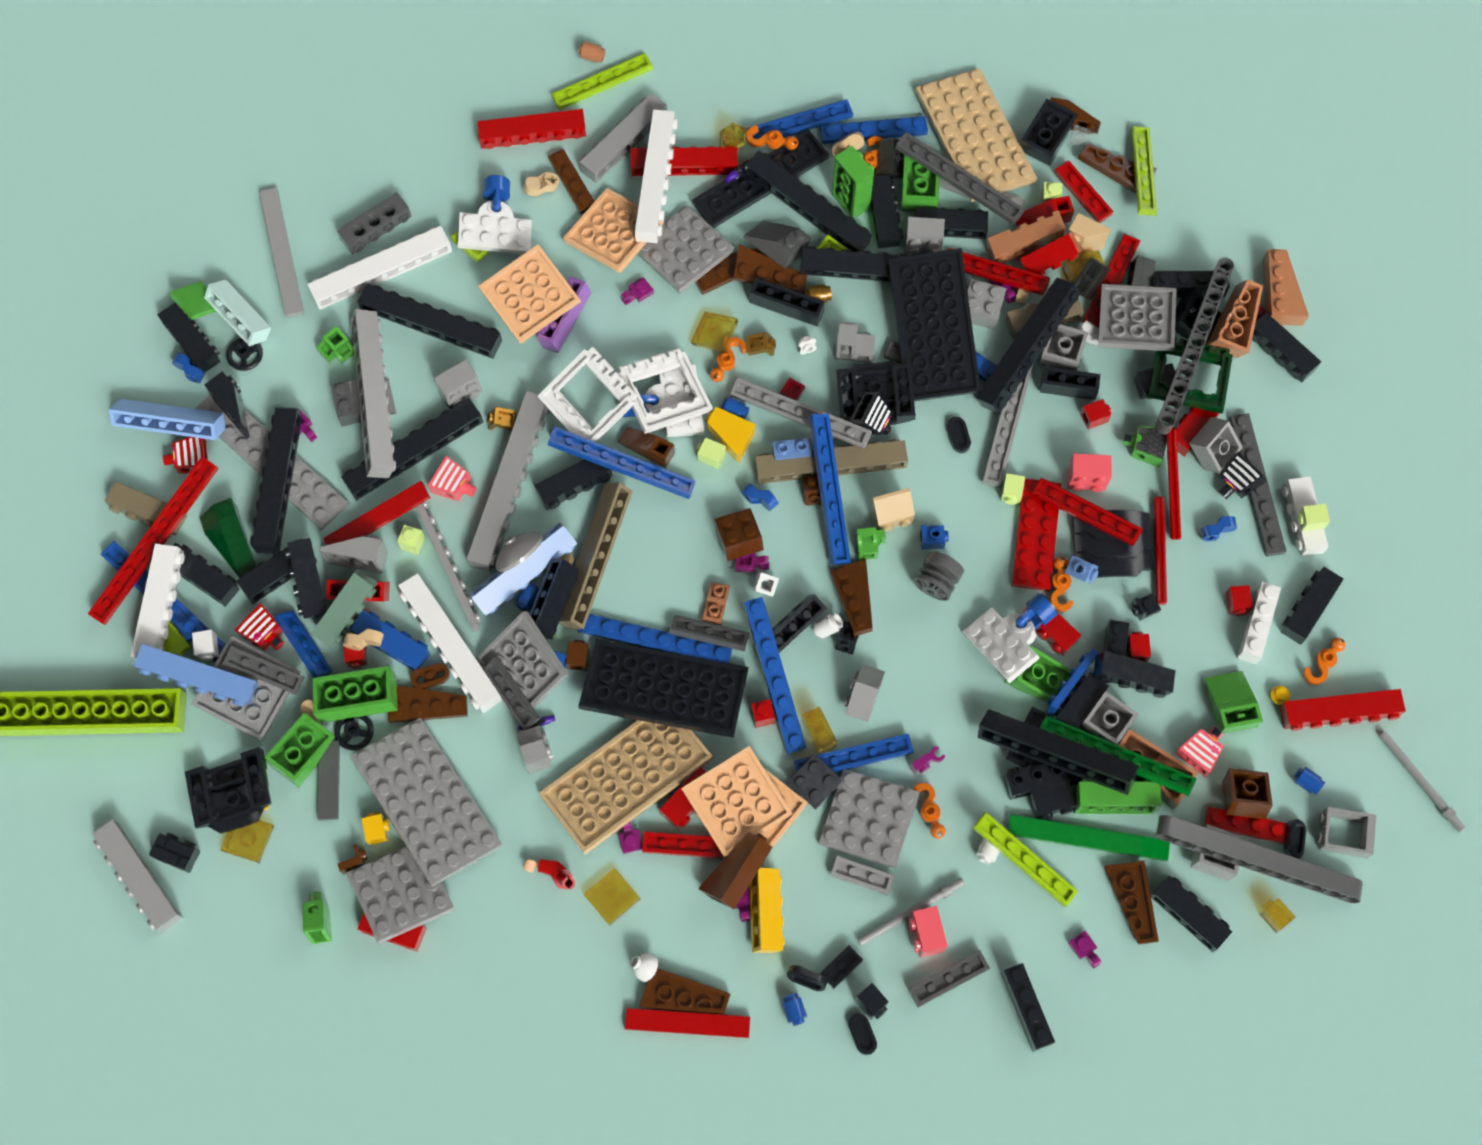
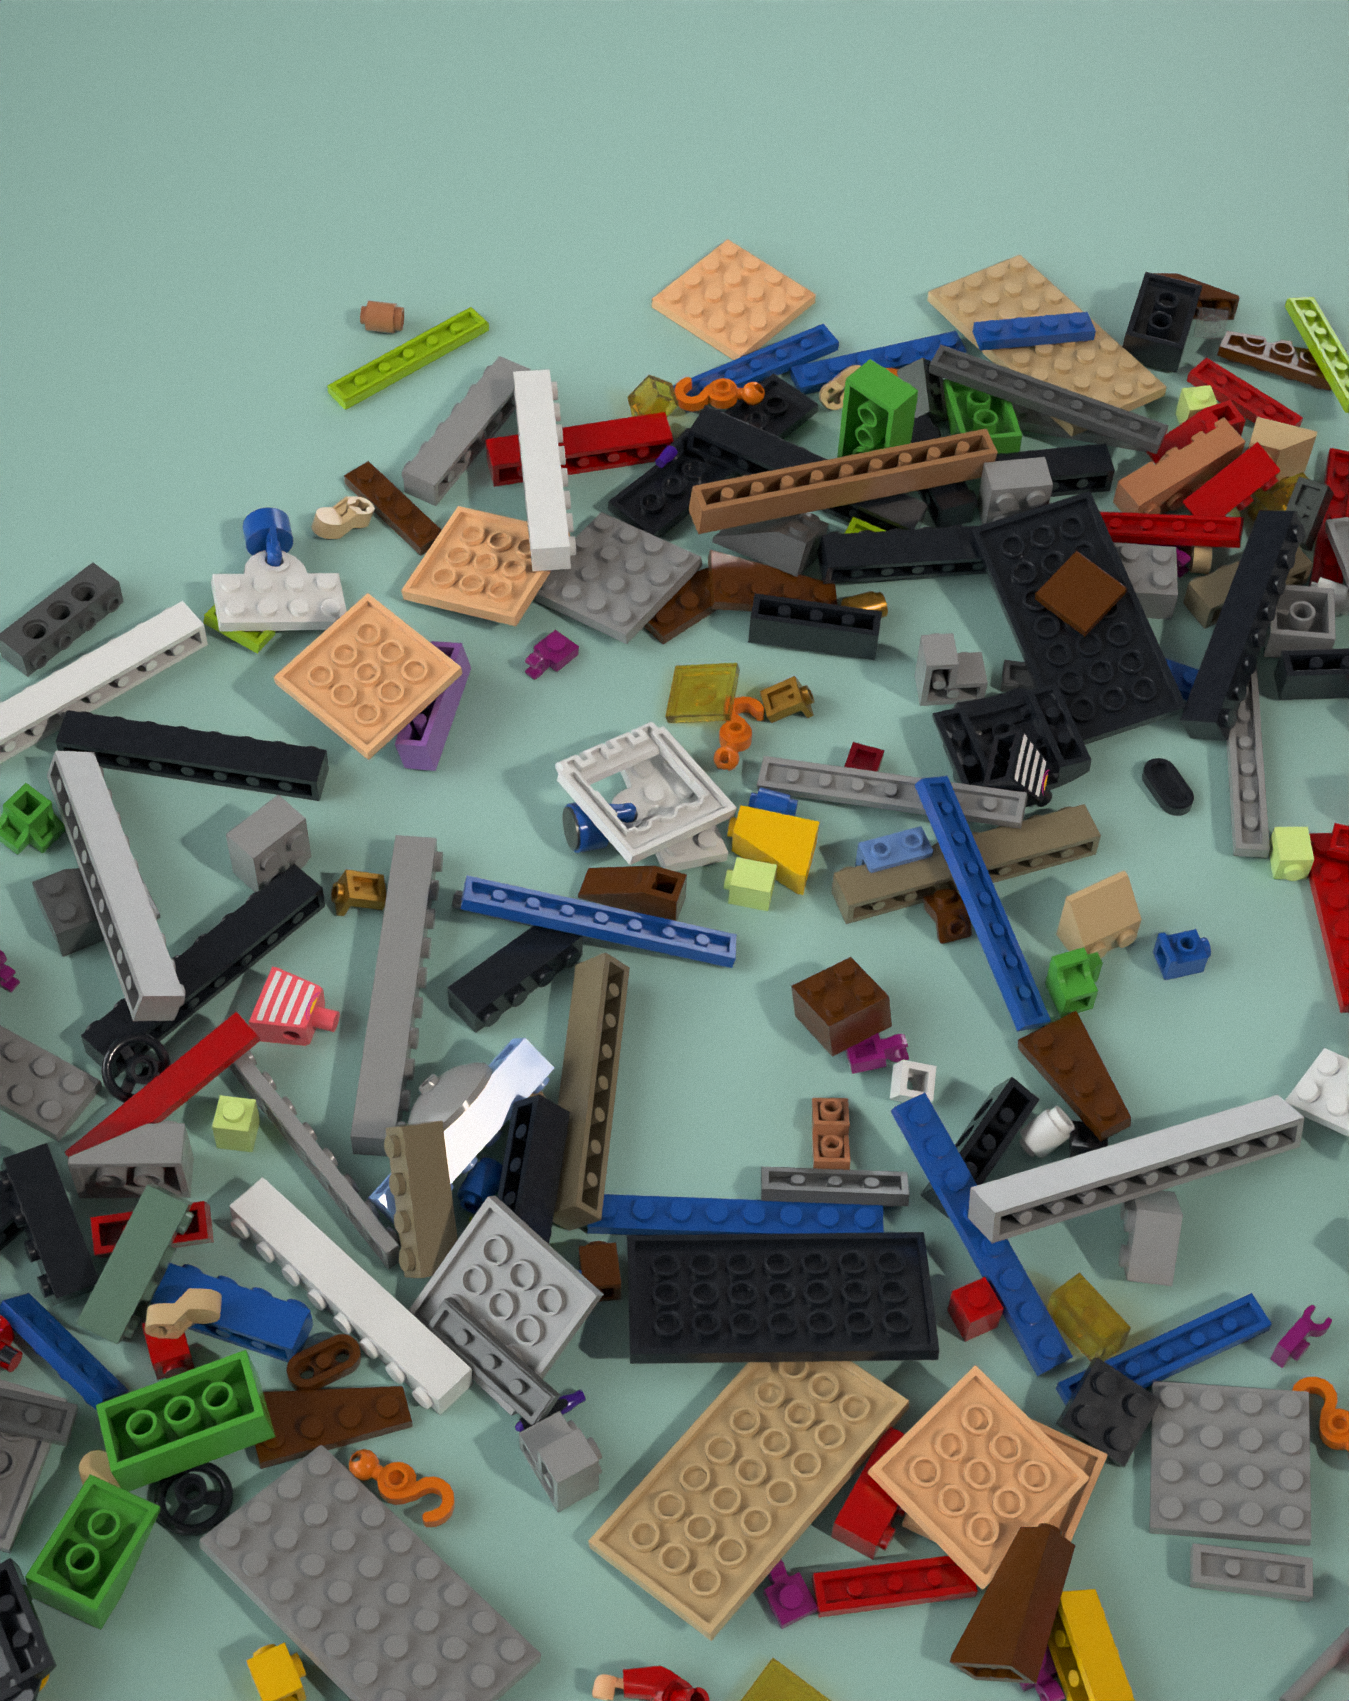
camera: 15 degrees left, 15 degrees down
(329, 783) = (163, 1610): dark grey tile -> none
(367, 506) = (150, 1066): none -> black piece
(454, 746) = (399, 1485): none -> orange piece
(493, 600) = (421, 1196): none -> dark tan brick
(531, 129) = (307, 438): red brick -> none
(569, 415) = (532, 772): white hinge -> none
(762, 497) = (863, 940): blue piece -> none
(800, 72) = (733, 300): none -> light nougat plate
(807, 345) = (867, 688): white plate -> none
(822, 215) = (840, 481): none -> medium nougat brick
(865, 656) = (1134, 1168): none -> light grey brick
(938, 311) = (1080, 593): none -> reddish brown tile
(938, 575) = (1217, 1011): dark grey wheel -> none
(968, 127) = (1033, 331): none -> blue plate

